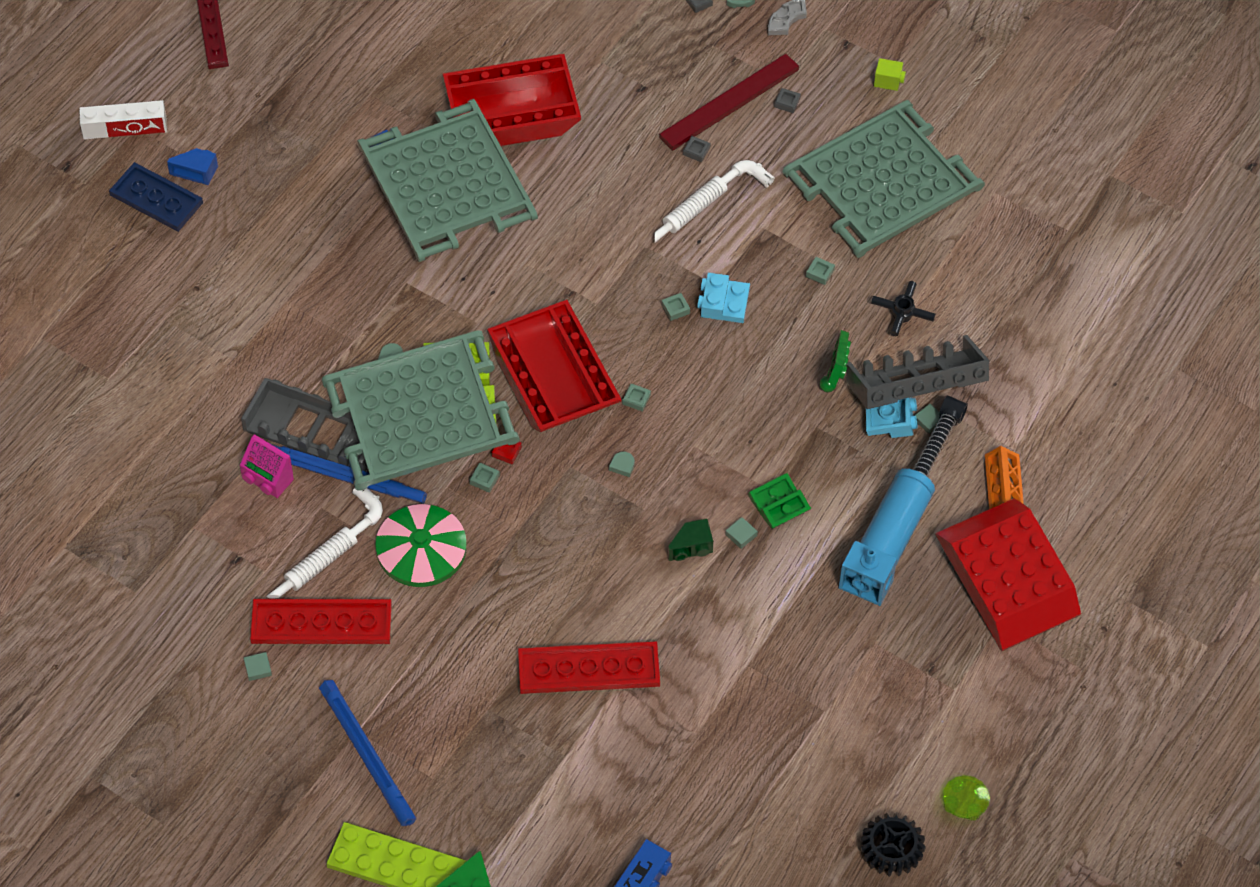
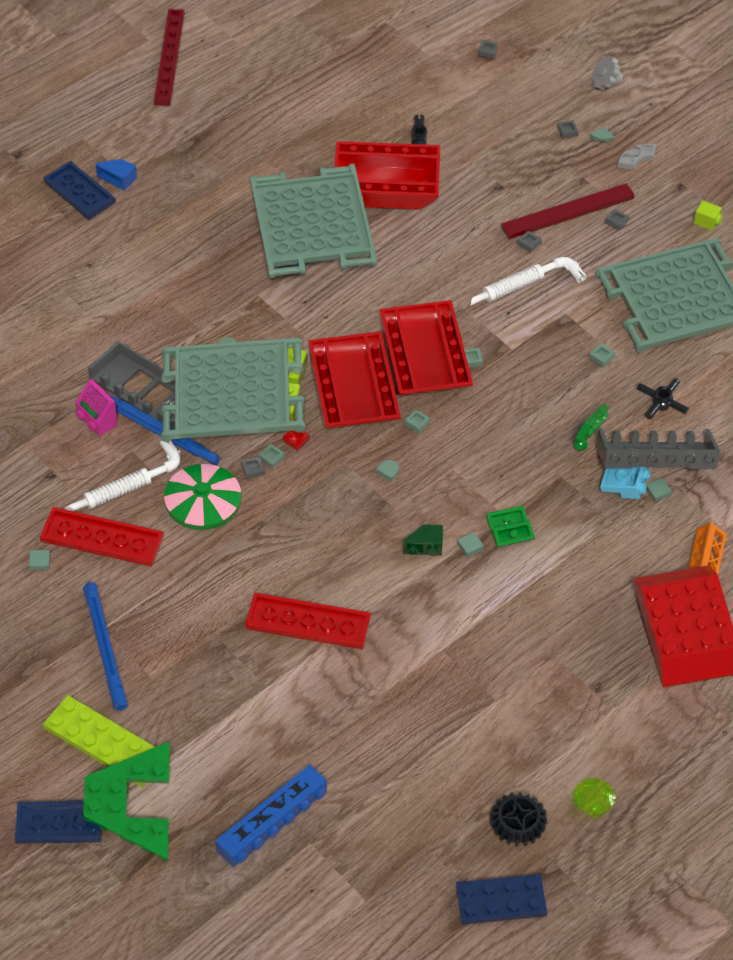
camera: 15 degrees right, 5 degrees down
(123, 119) = (72, 127): white brick -> none
(468, 497) = (252, 467): none -> dark grey plate
(531, 39) = (419, 131): none -> black pin
(622, 308) = (424, 348): none -> red slope
(723, 298) = (514, 359): medium azure plate -> none
(873, 560) = (568, 592): dark azure piece -> none

